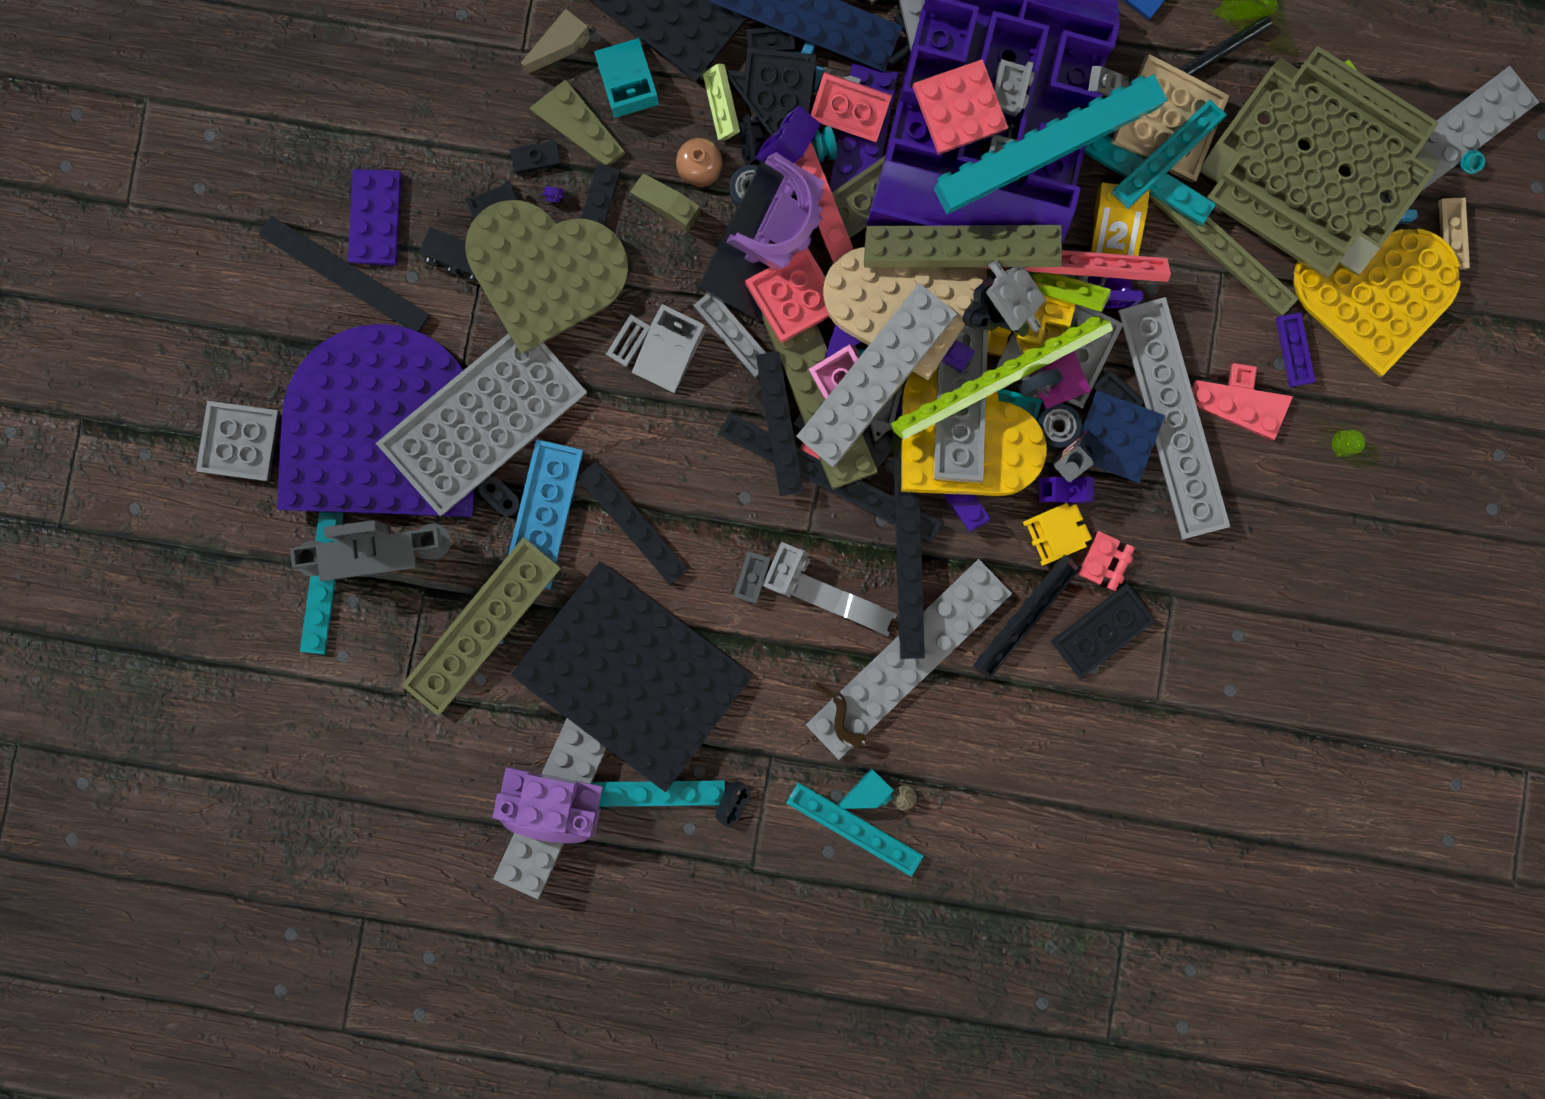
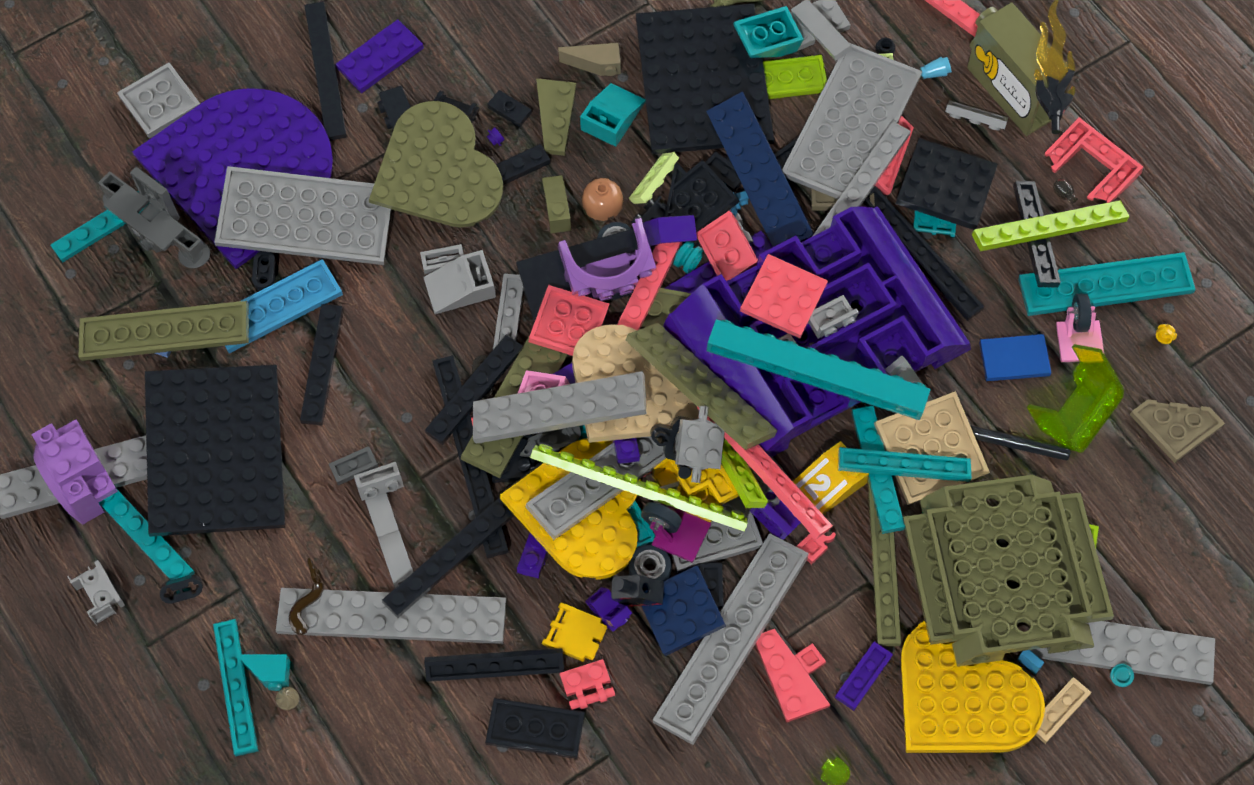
camera: 45 degrees right, 20 degrees down
(673, 870) = (98, 589): none -> light grey piece
(1159, 290) = (814, 546): none -> coral plate

